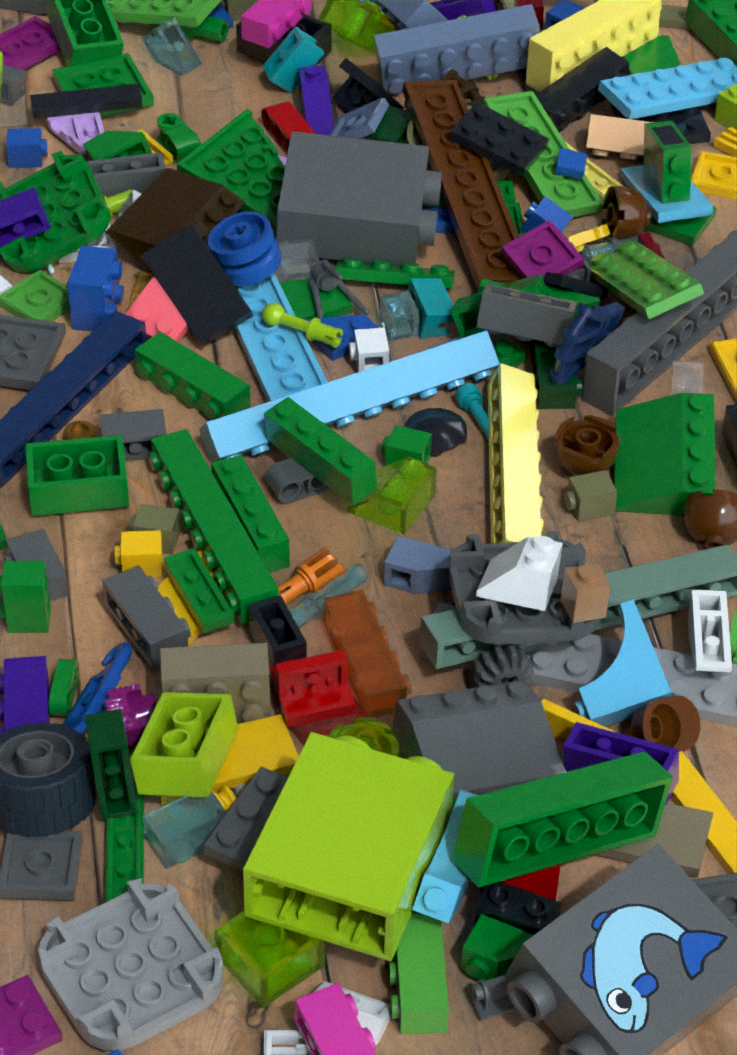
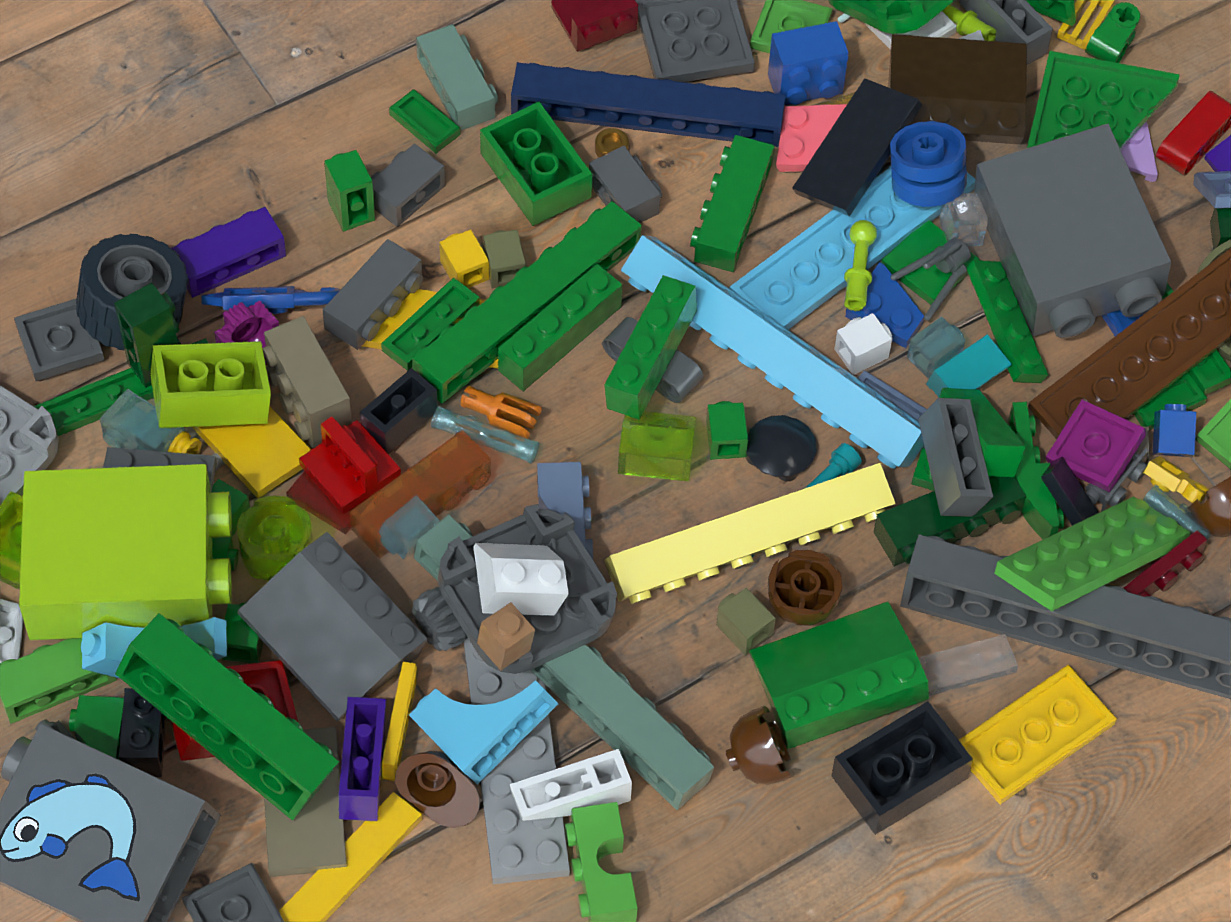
camera: 65 degrees right, 15 degrees up
(63, 687) = (268, 269): green beam -> none
(412, 654) = (406, 527): none -> clear light blue brick
(581, 337) = (935, 516): dark blue plate -> none

